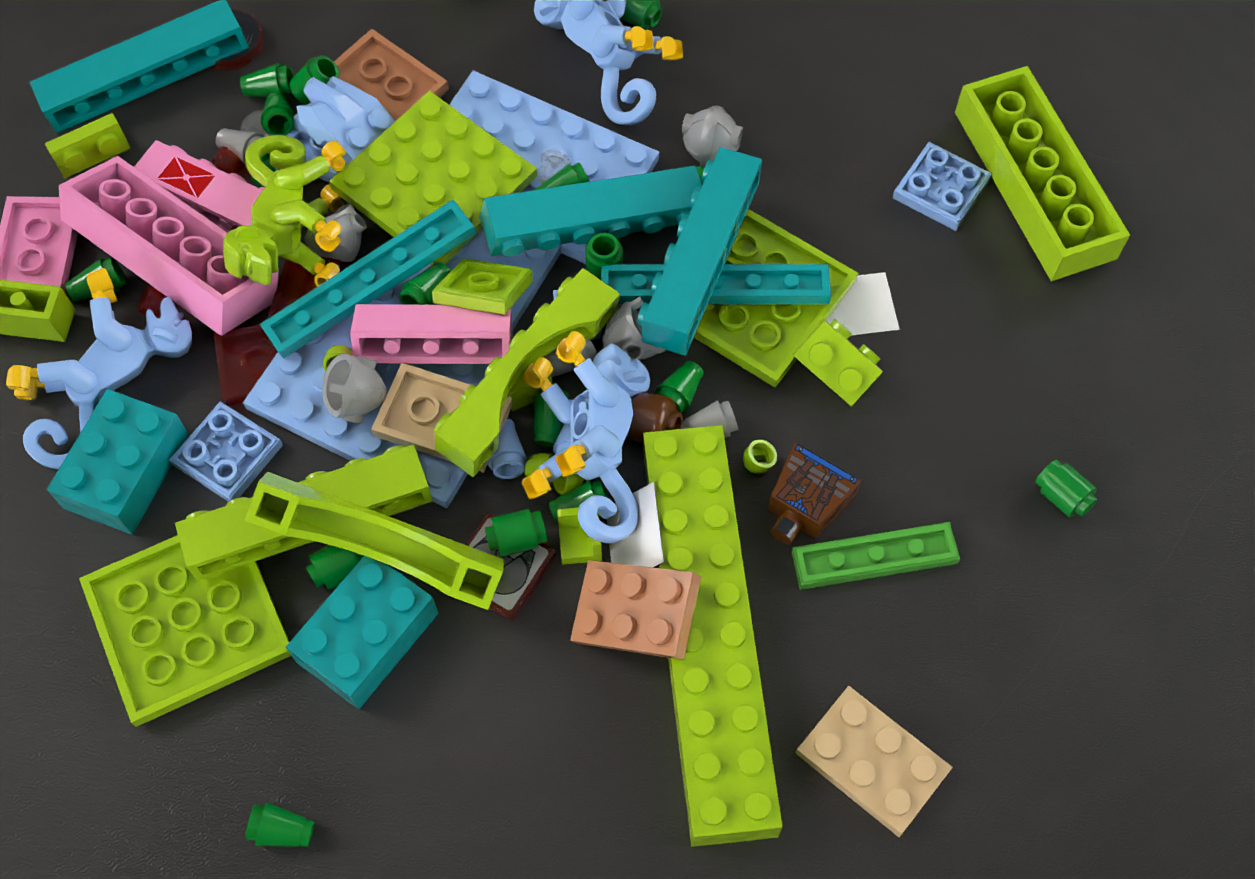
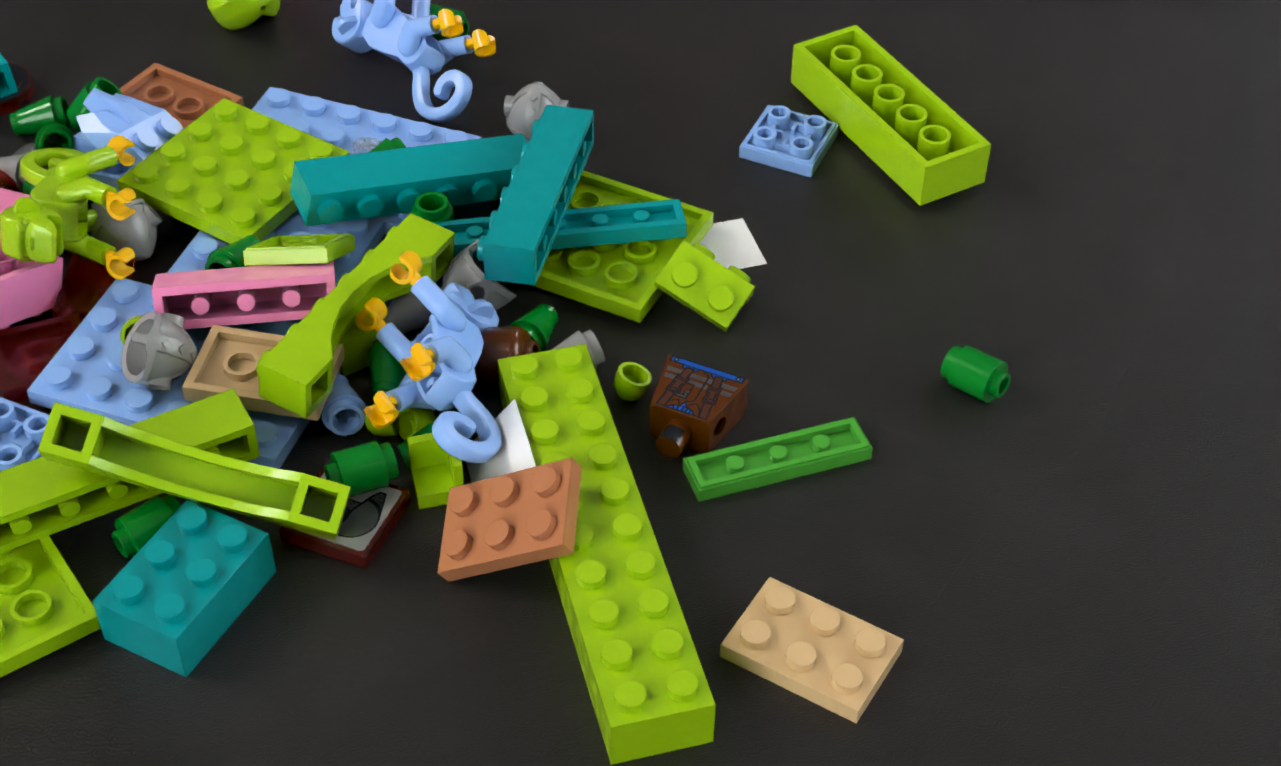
camera: 10 degrees left, 20 degrees down
(368, 278) = (166, 252): teal plate -> none

